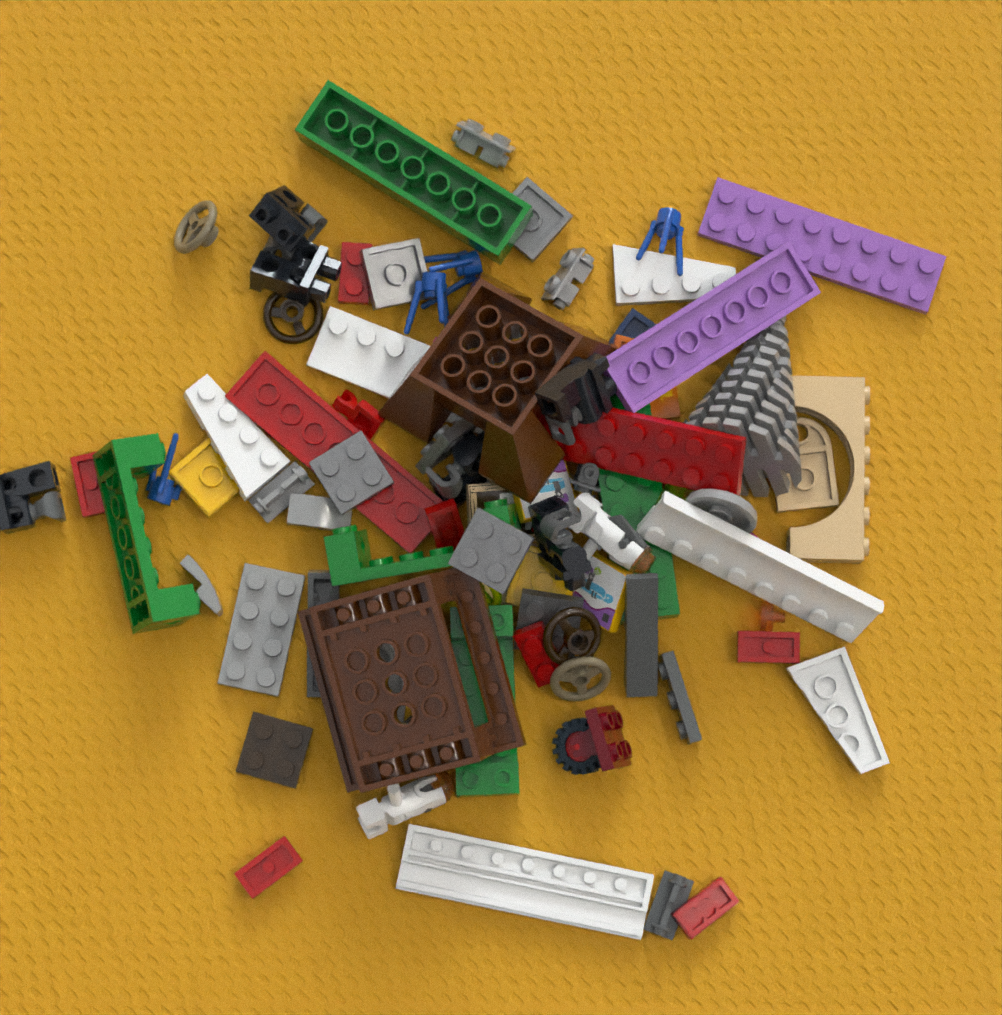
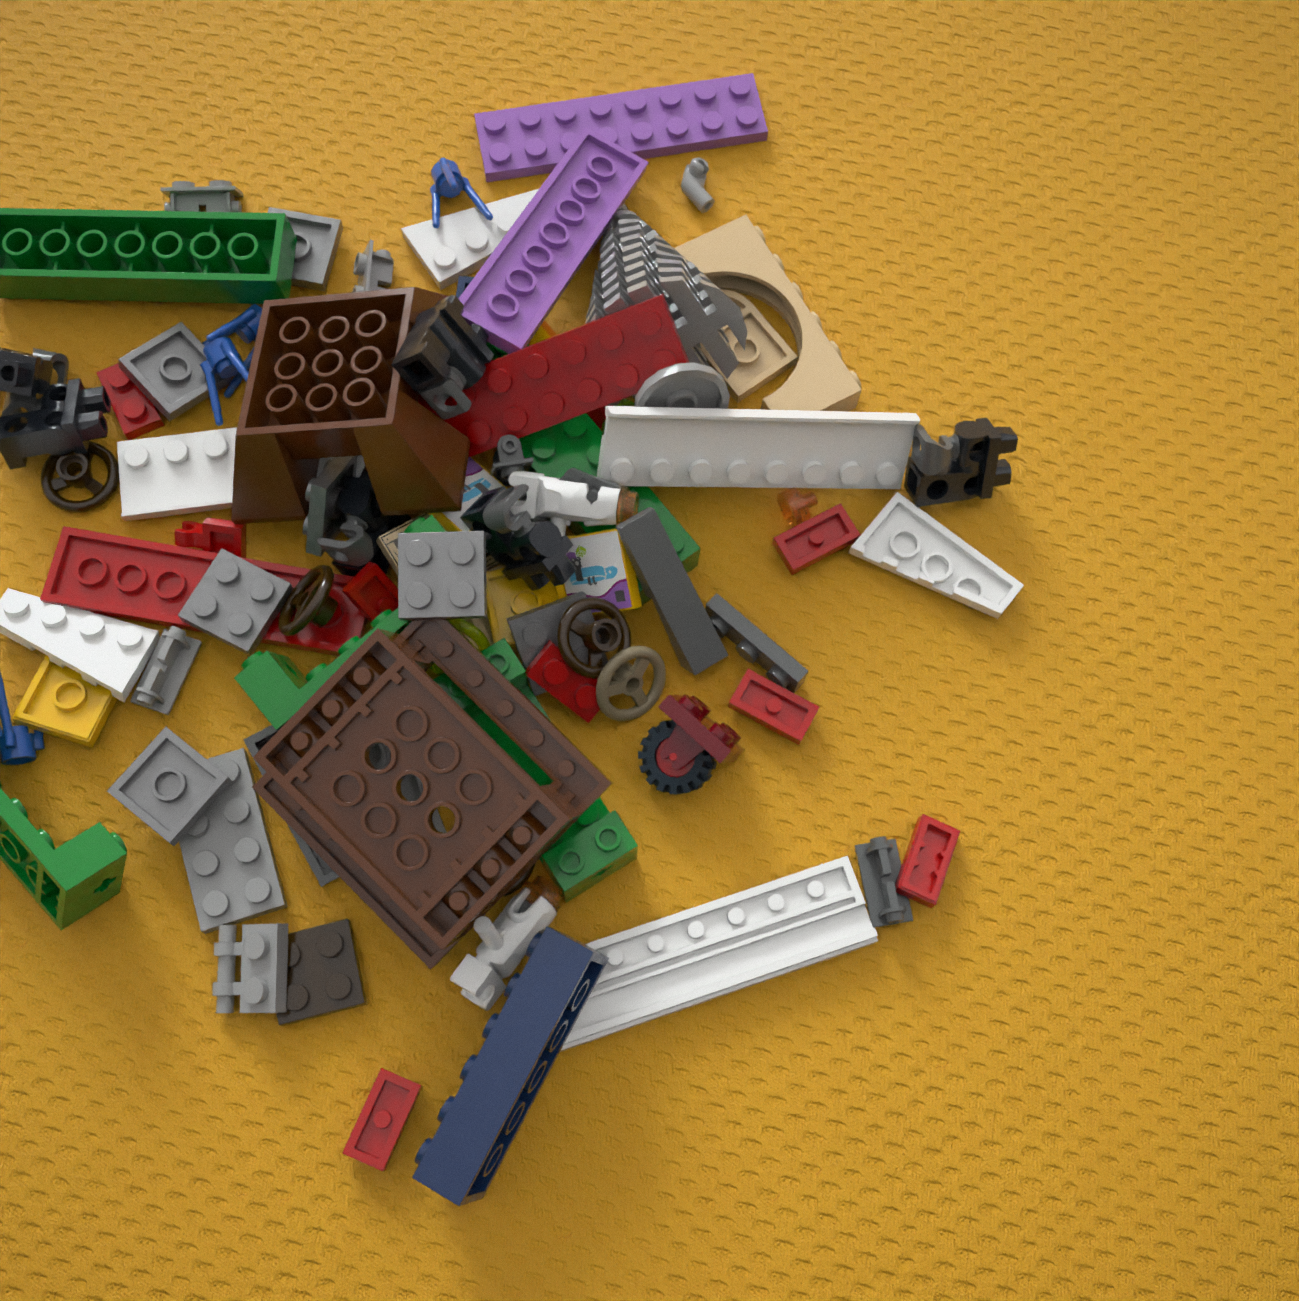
camera: 30 degrees left, 10 degrees down
(206, 591) = (128, 828): light grey slope -> none
(244, 731) = (262, 968): none -> light grey plate
(246, 578) = (169, 786): none -> flat silver plate
(315, 512) = (211, 671): light grey slope -> none
(365, 882) = (509, 1067): none -> dark blue brick
(401, 507) = (311, 601): none -> dark brown piece
(667, 747) = (773, 706): none -> red plate
(847, 323) = (693, 184): none -> light grey arm
(897, 656) = (959, 464): none -> black hips

